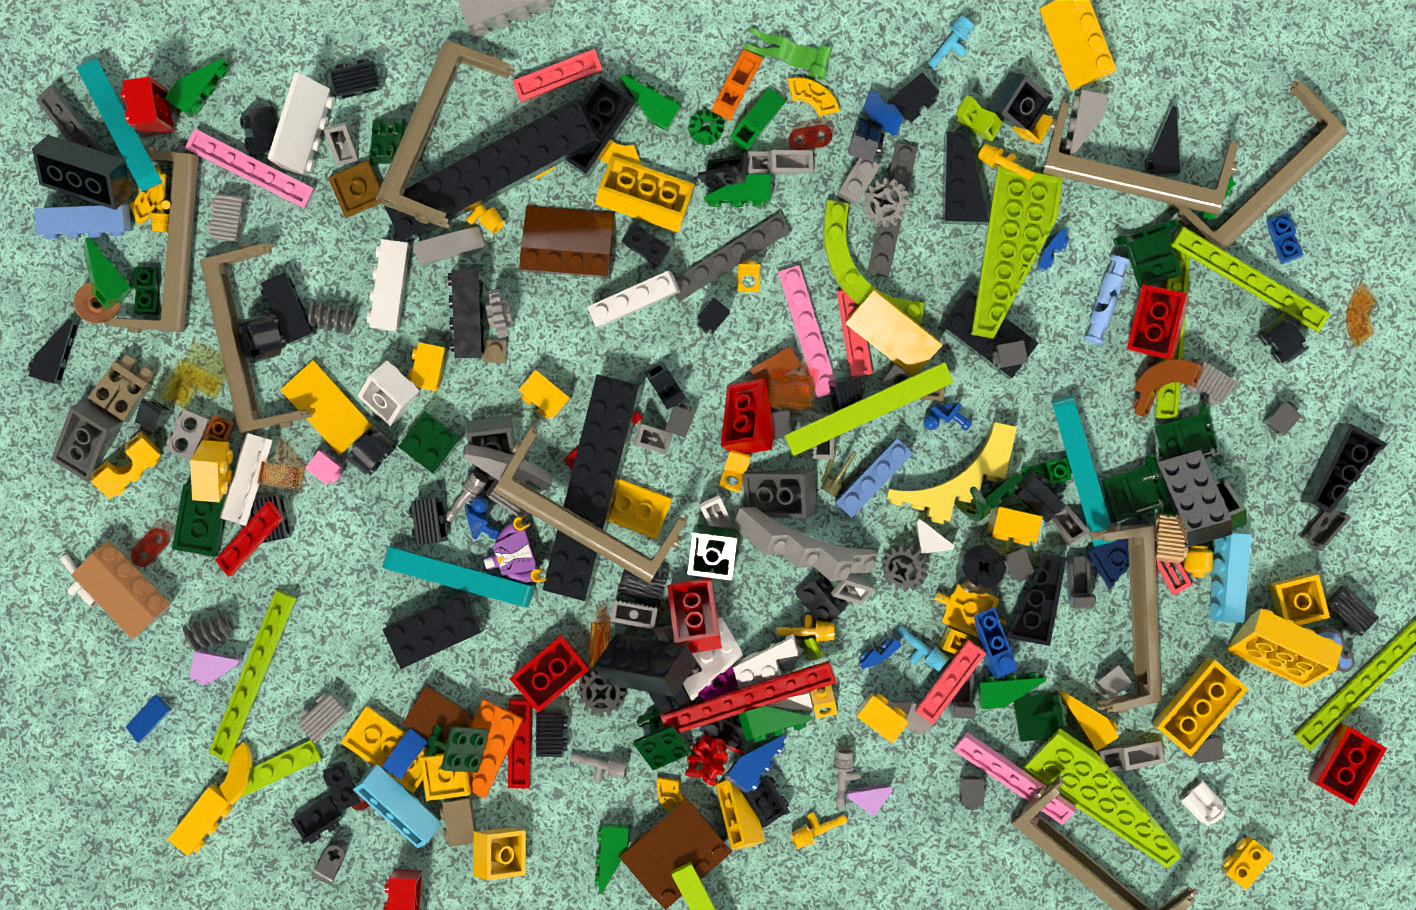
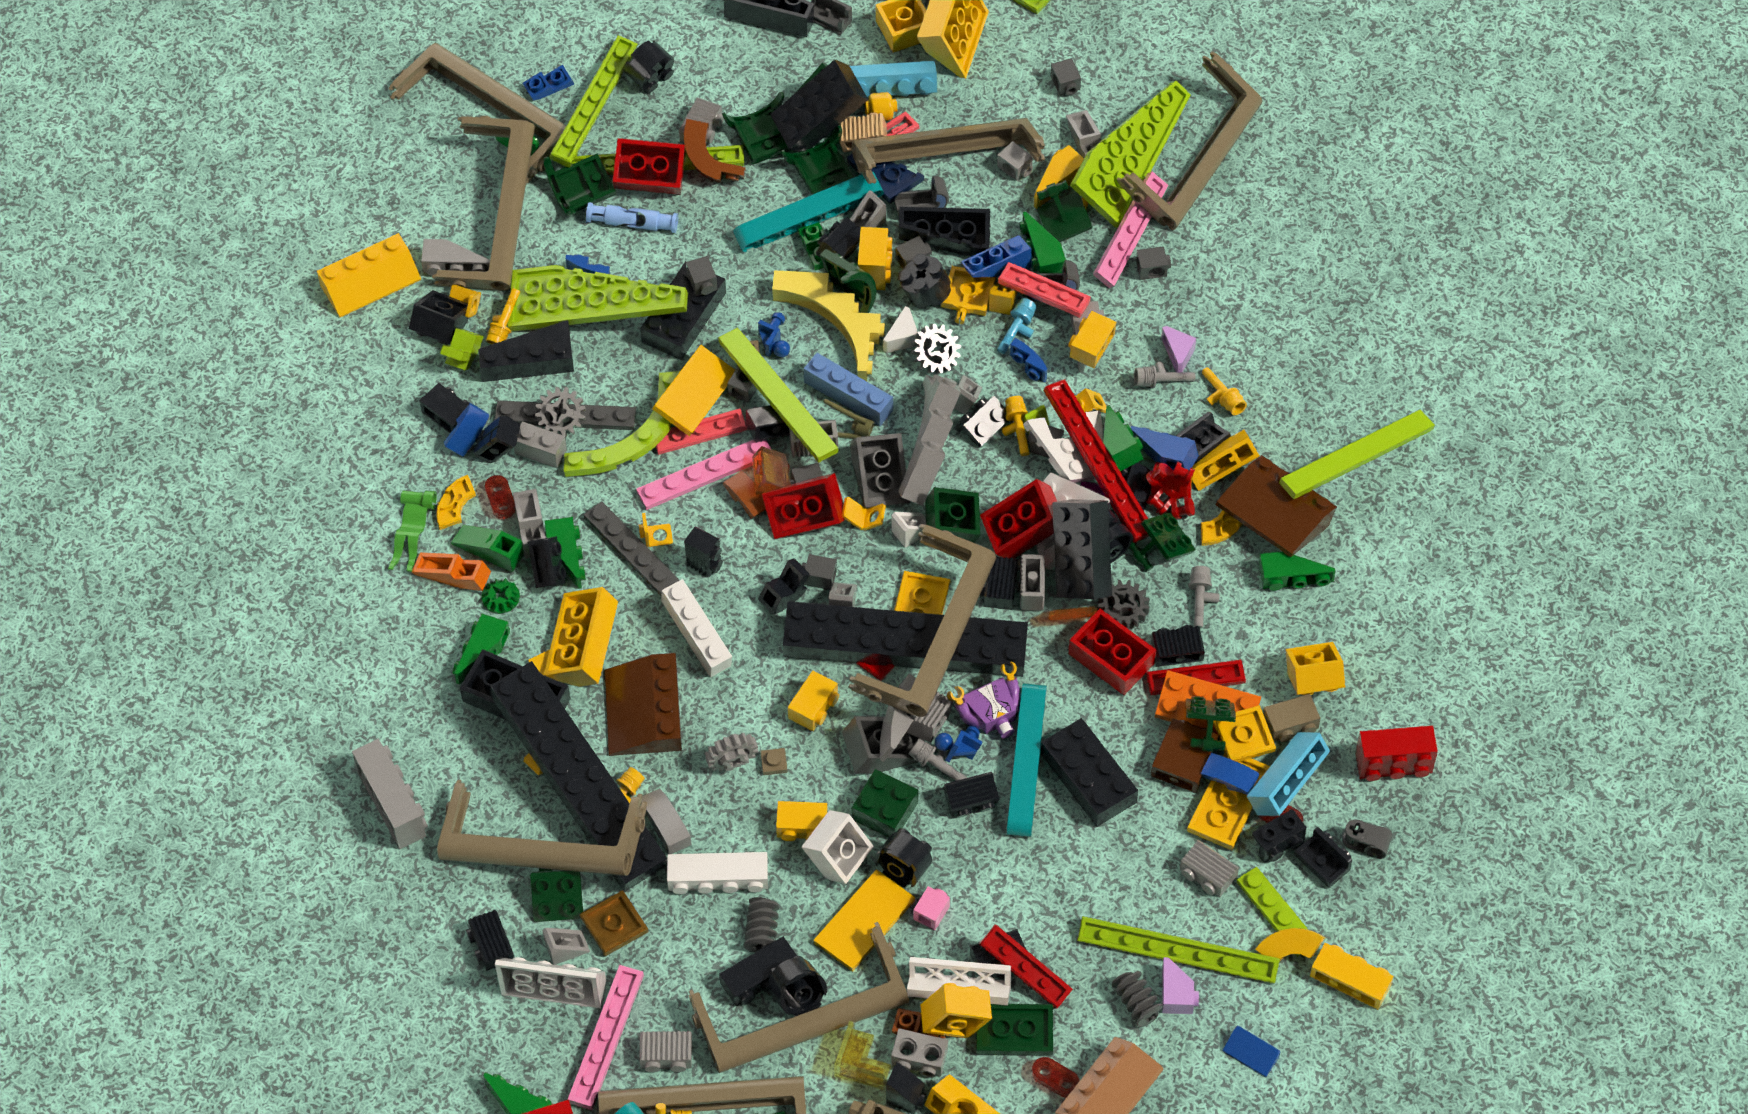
camera: 95 degrees left, 30 degrees down
(259, 129) = (561, 1033): black bracket -> none
(280, 475) = (948, 946): clear orange tile -> none
(466, 310) = (731, 787): black wedge -> none
(557, 75) = (462, 742): coral plate -> none
(646, 245) = (636, 628): black brick -> none
(960, 29) = (371, 377): medium azure piece -> none
(1164, 154) = (471, 189): black slope -> none
(1199, 706) = (1024, 86): yellow slope -> none
(1203, 803) = (1120, 72): white piece -> none
(1246, 862) = (1169, 31): yellow brick -> none
(1282, 417) = (727, 59): dark grey brick -> none
(1358, 316) = (616, 14): clear orange tile -> none

